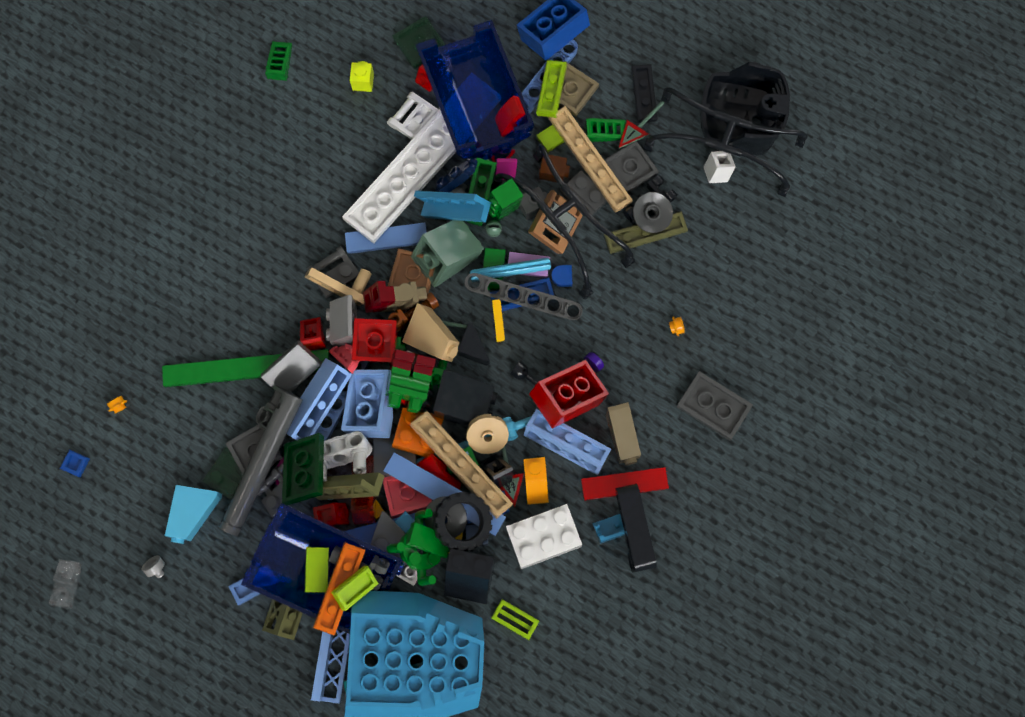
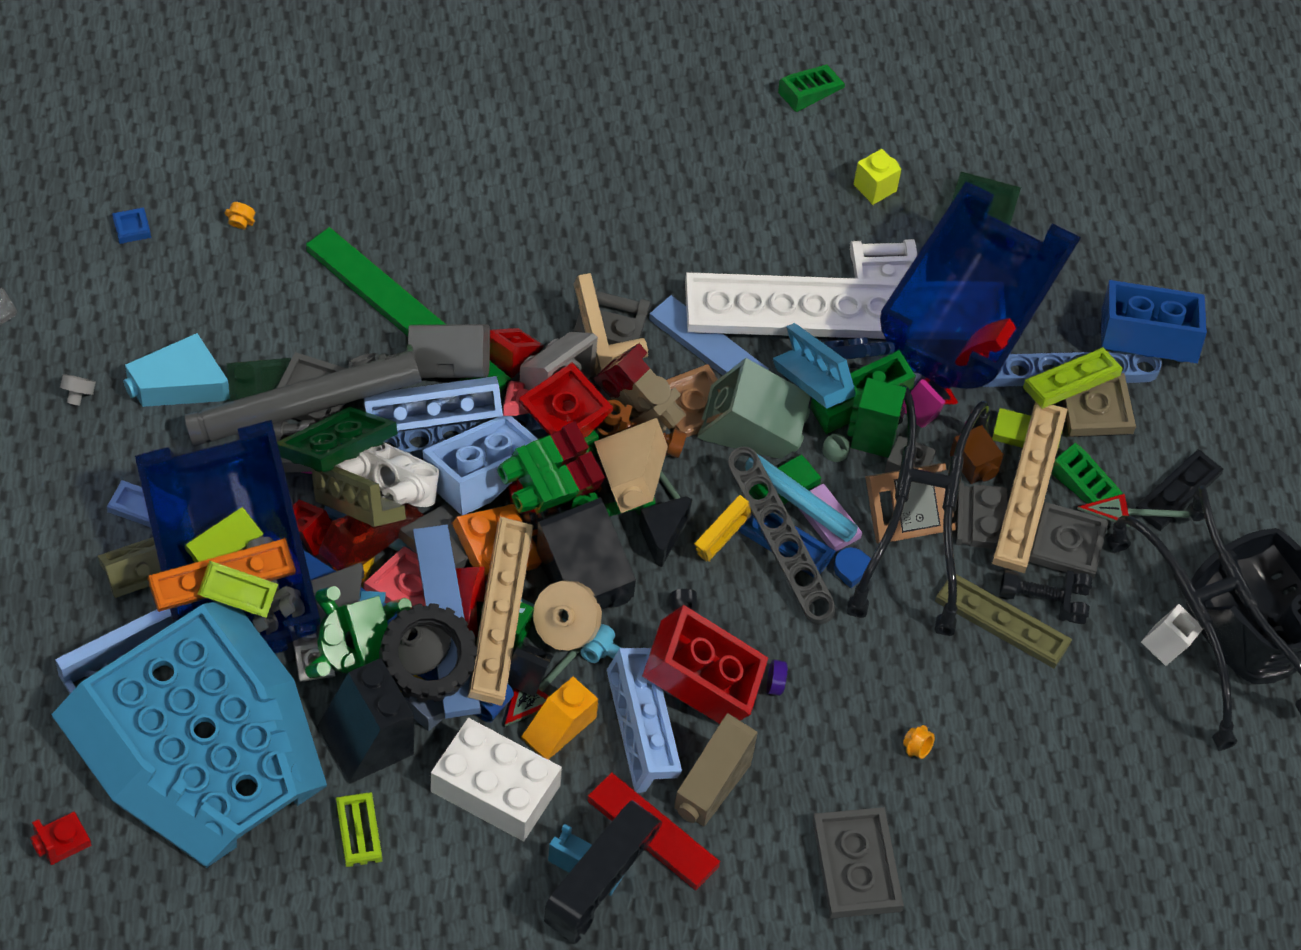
camera: 40 degrees right, 20 degrees down
(661, 208) = (1037, 586): dark grey dish -> none

